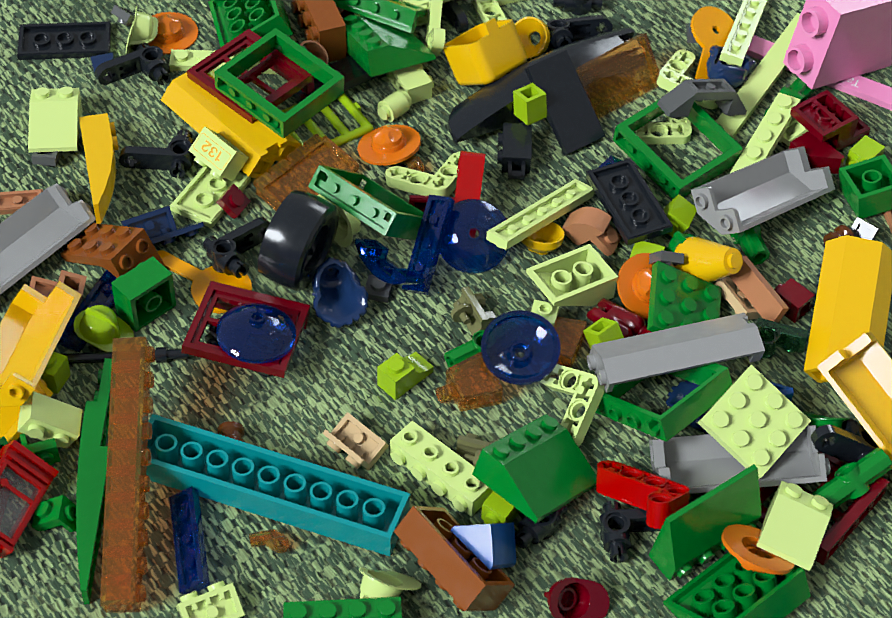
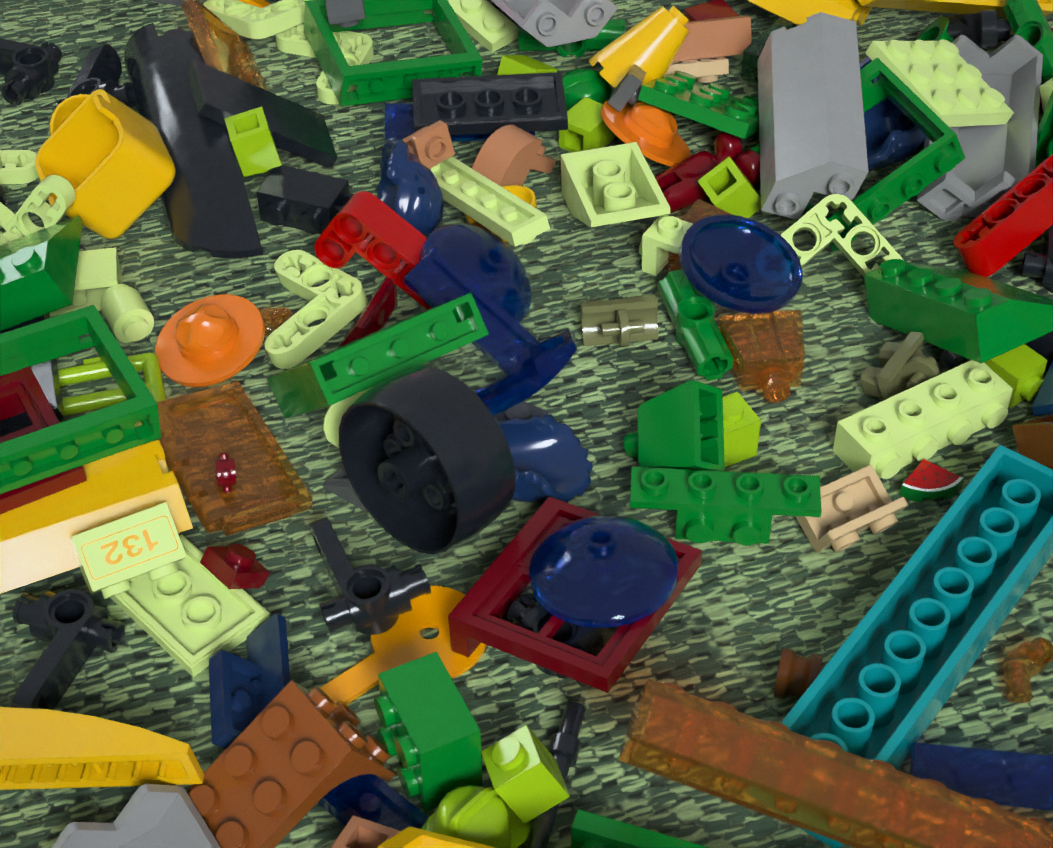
camera: 70 degrees left, 5 degrees down
(129, 326) = (525, 774): none -> lime brick
(287, 176) = (225, 472): none -> dark red piece
(335, 379) = (725, 503): none -> green bracket
(374, 351) = (680, 429): none -> green torso
(397, 479) = (930, 482): none -> tile
(536, 182) = (409, 187): none -> dark blue piece
(569, 181) = (431, 144): none -> nougat bracket

